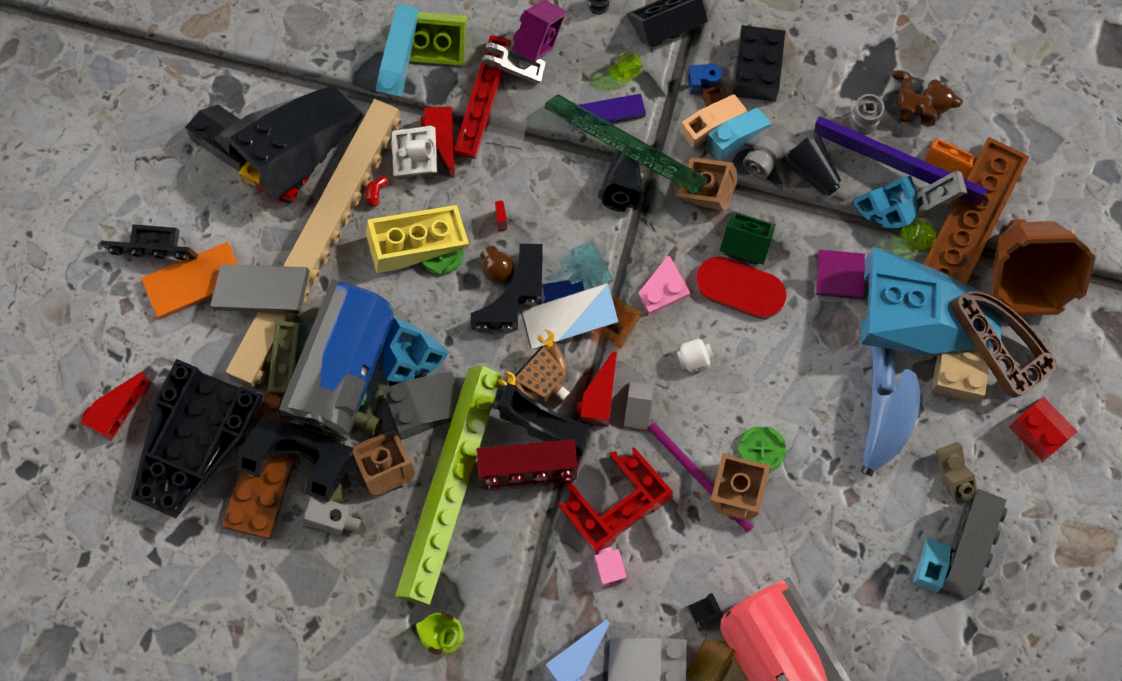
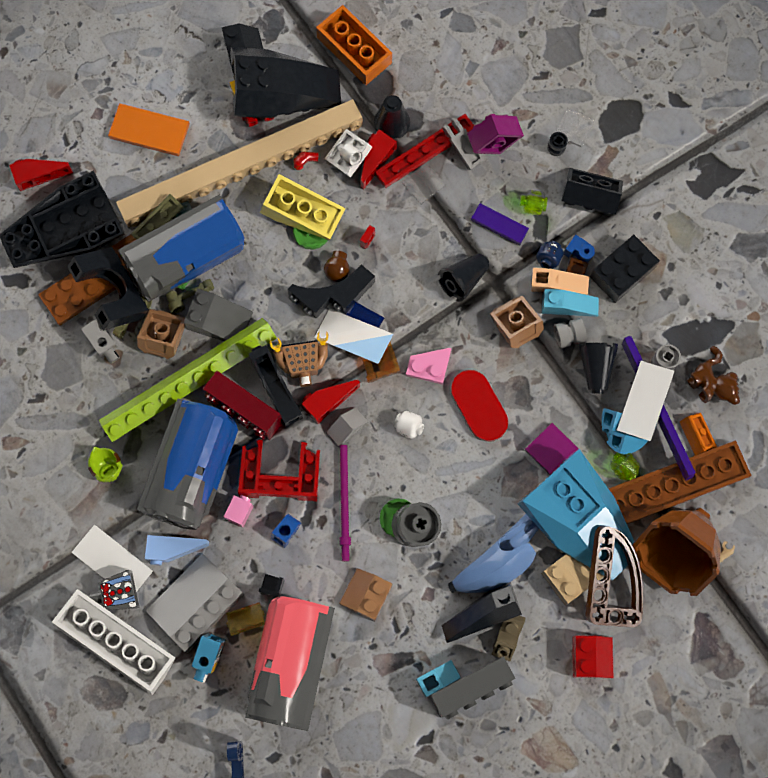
camera: 40 degrees right, 5 degrees up
(152, 241) = (144, 84): black bracket -> none
(260, 288) = (179, 166): tile -> none
(329, 49) = (354, 45): none -> orange brick
(398, 51) = (393, 79): medium azure slope -> none
(410, 352) = (236, 279): dark azure brick -> none
(425, 88) = (392, 117): none -> black cone
(440, 39) = (427, 86): lime slope -> none
(527, 562) = (189, 465): none -> piece
(591, 265) = (397, 313): clear light blue hinge -> none
(626, 144) = (486, 254): clear green tile -> none
(670, 549) = (285, 530): none -> blue leg
(682, 102) = (549, 255): none -> dark blue head
(739, 487) = (359, 528): medium nougat slope -> none
(747, 238) = (511, 377): dark green slope -> none
(787, 439) = (427, 522): none -> dark grey wheel
(798, 543) = (366, 594): none -> medium nougat slope
(885, 161) = (645, 400): none -> white sticker
(918, 468) = (485, 612): none -> black wedge
(940, 193) = (662, 450): light grey hinge -> none

